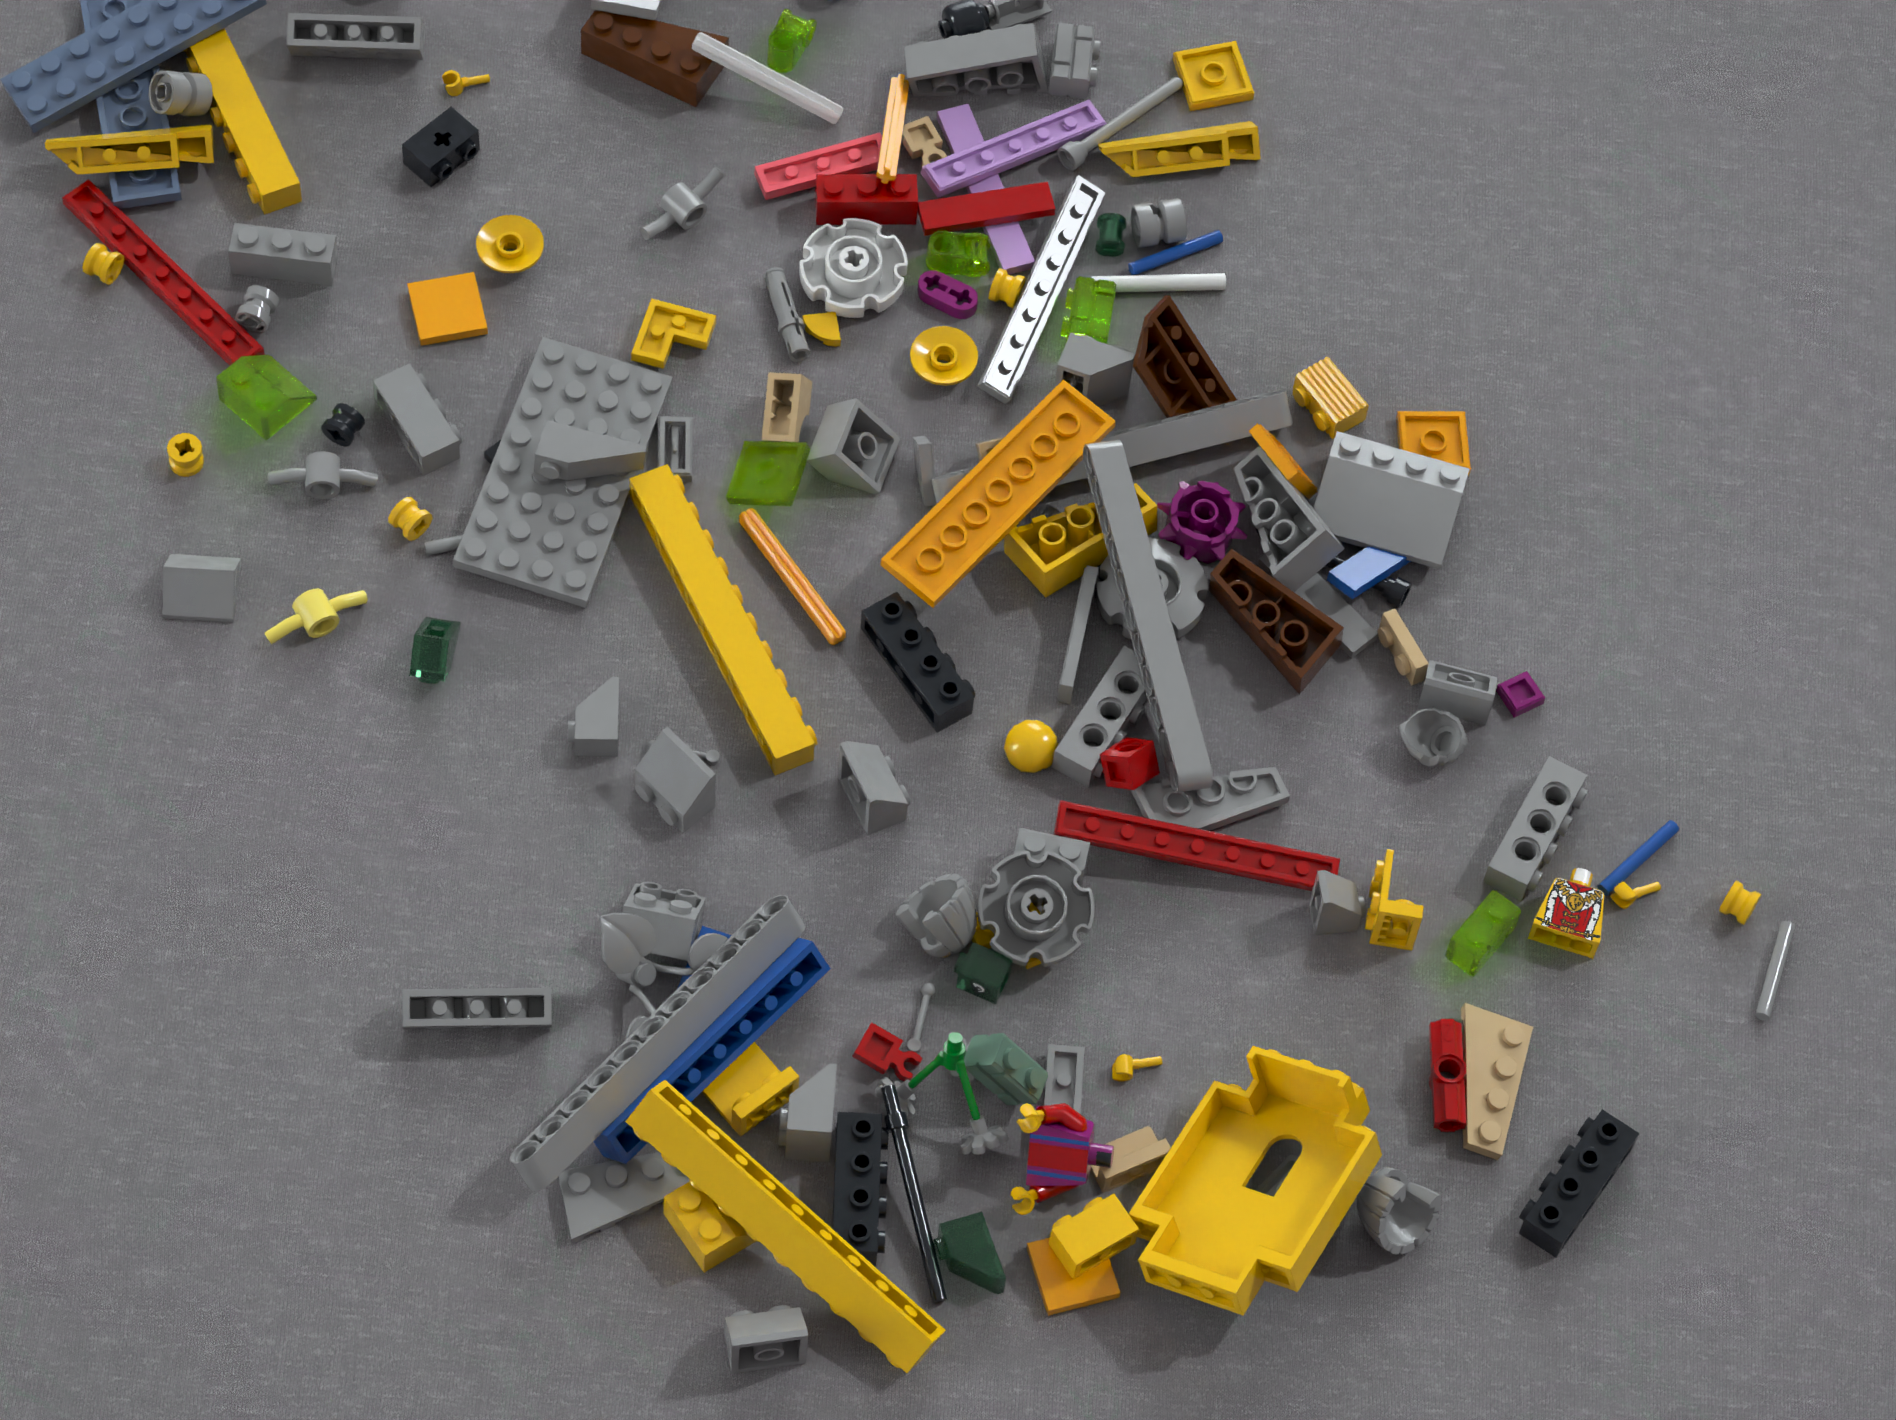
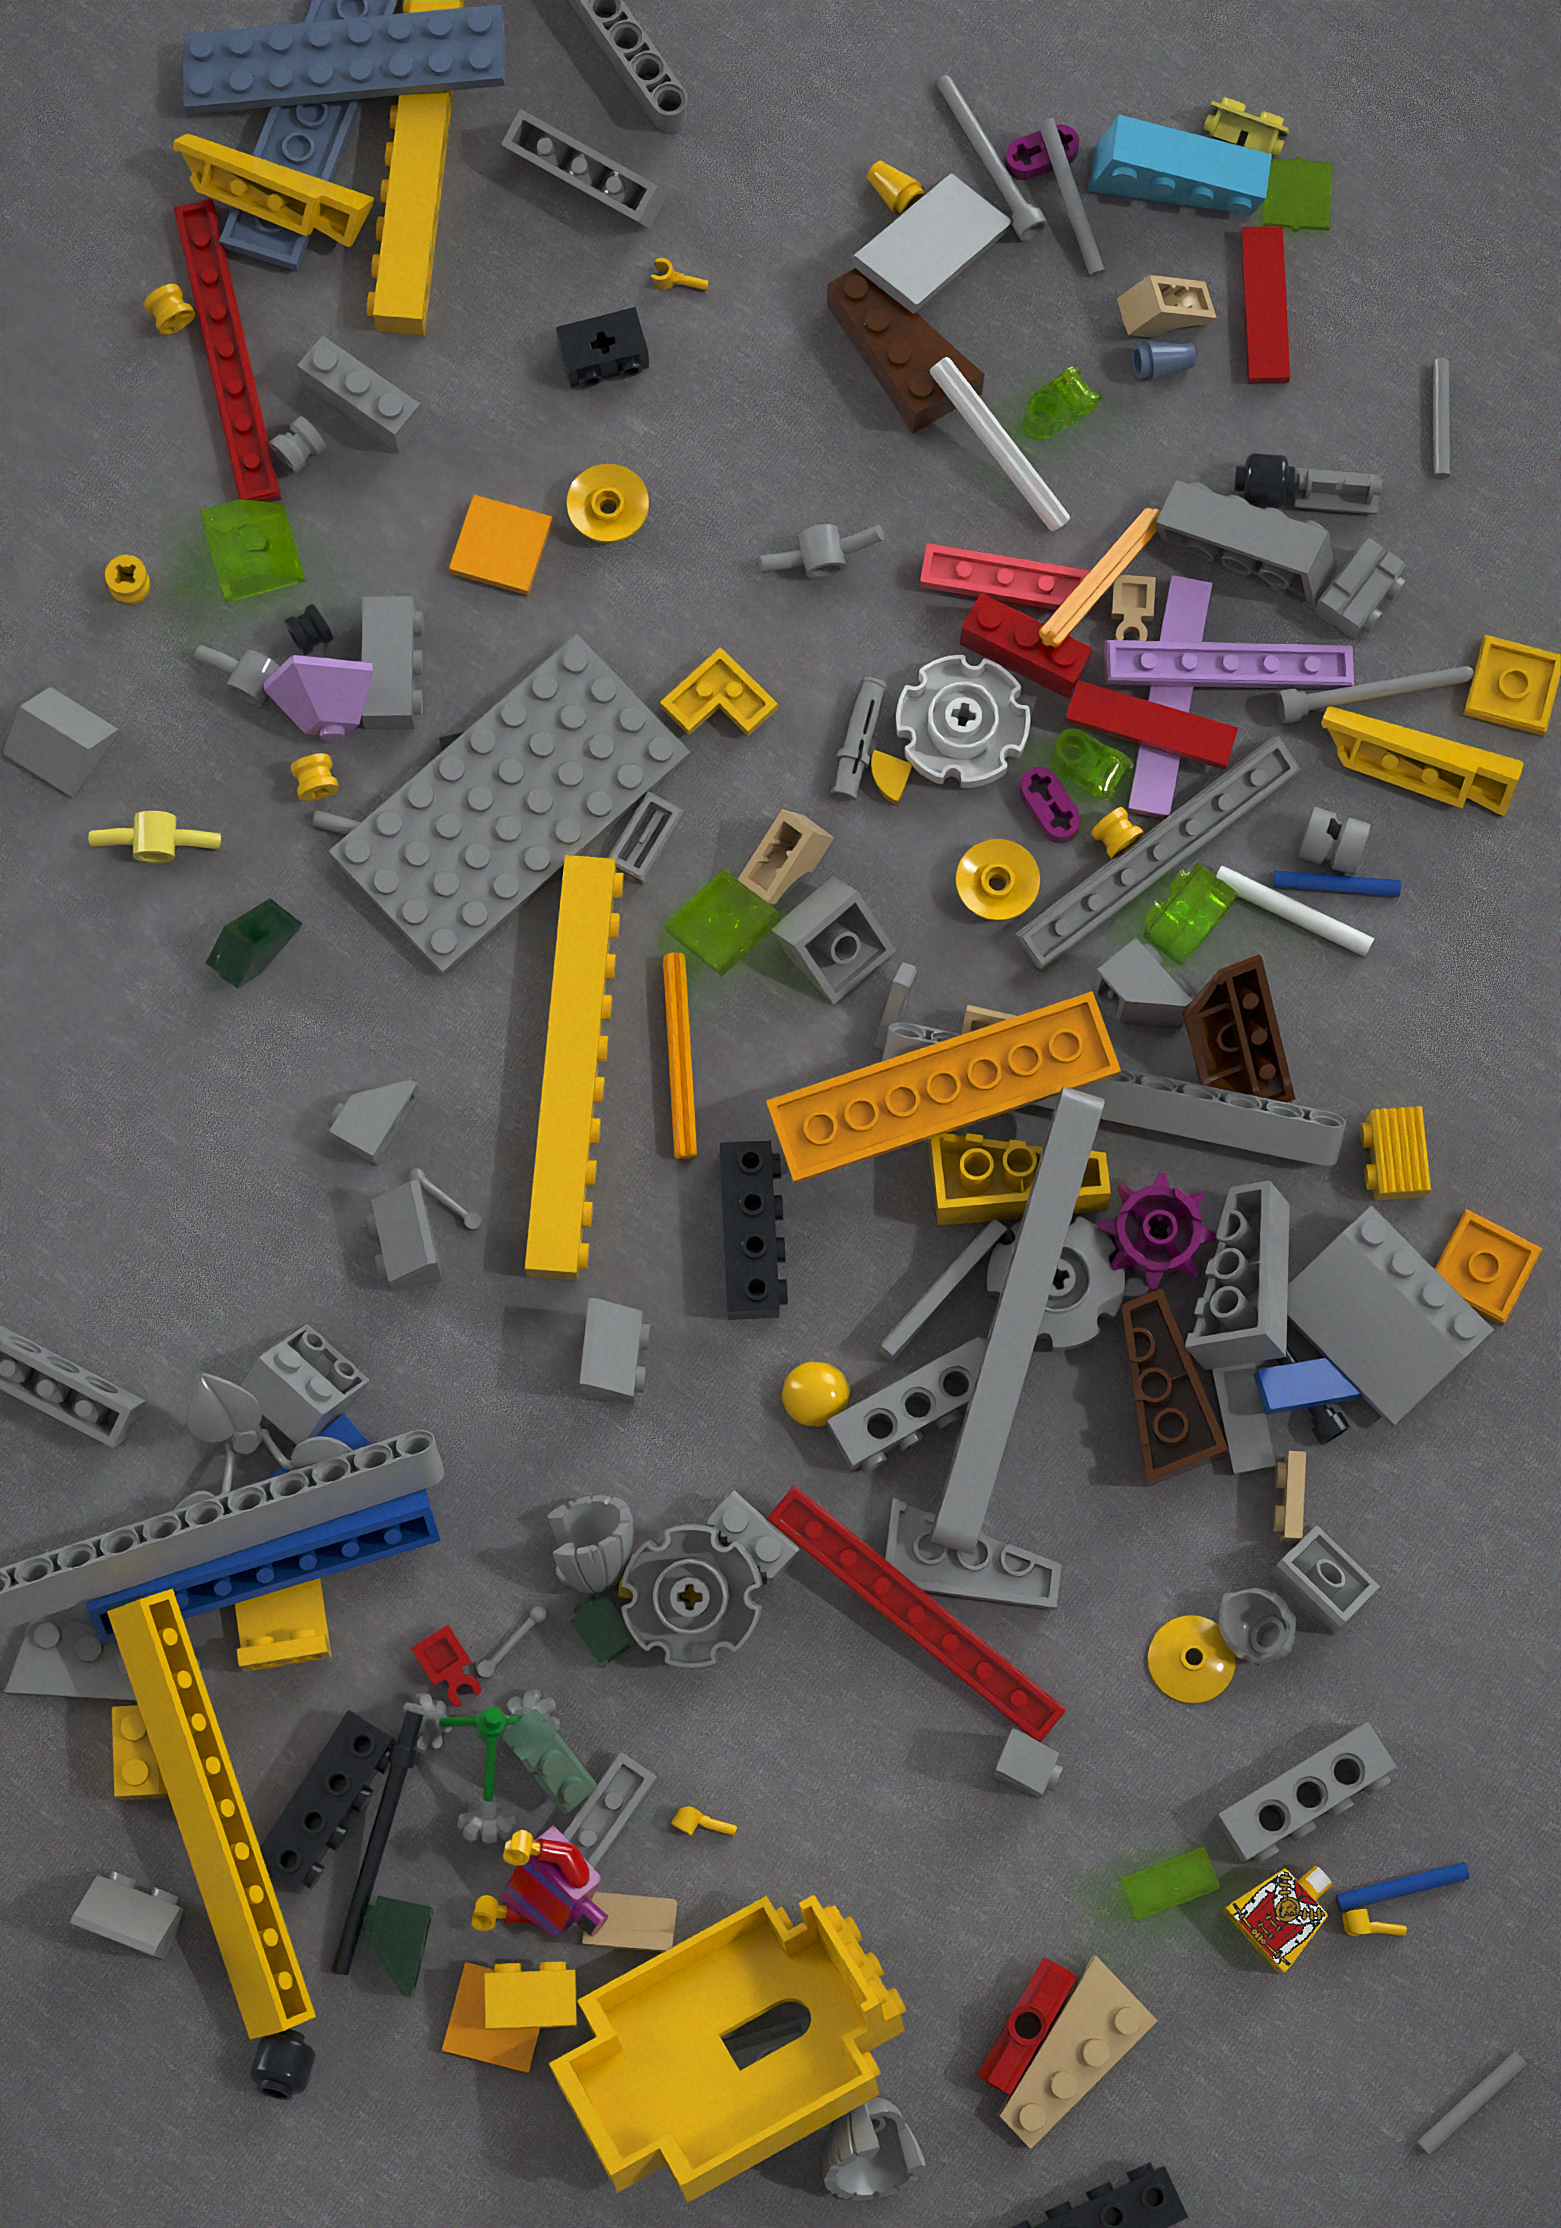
camera: 35 degrees right, 15 degrees up
(180, 93) = (356, 147): light grey wheel -> none
(384, 454) = (321, 694): none -> lavender slope
(580, 453) = (525, 800): light grey slope -> none
(809, 1118) = (318, 1700): light grey slope -> none
(940, 1380) = (282, 2064): none -> black head
(1110, 234) = (1273, 826): clear green bush -> none
(1129, 763) = (901, 1477): red brick -> none
(1283, 460) = (1290, 1208): light orange tile -> none
(1390, 921) = (1077, 1825): yellow bracket -> none
(1400, 801) = (1175, 1675): none -> yellow dish
(1520, 694) = (1392, 1621): magenta tile -> none
(1740, 902) = (1479, 2006): yellow wheel -> none

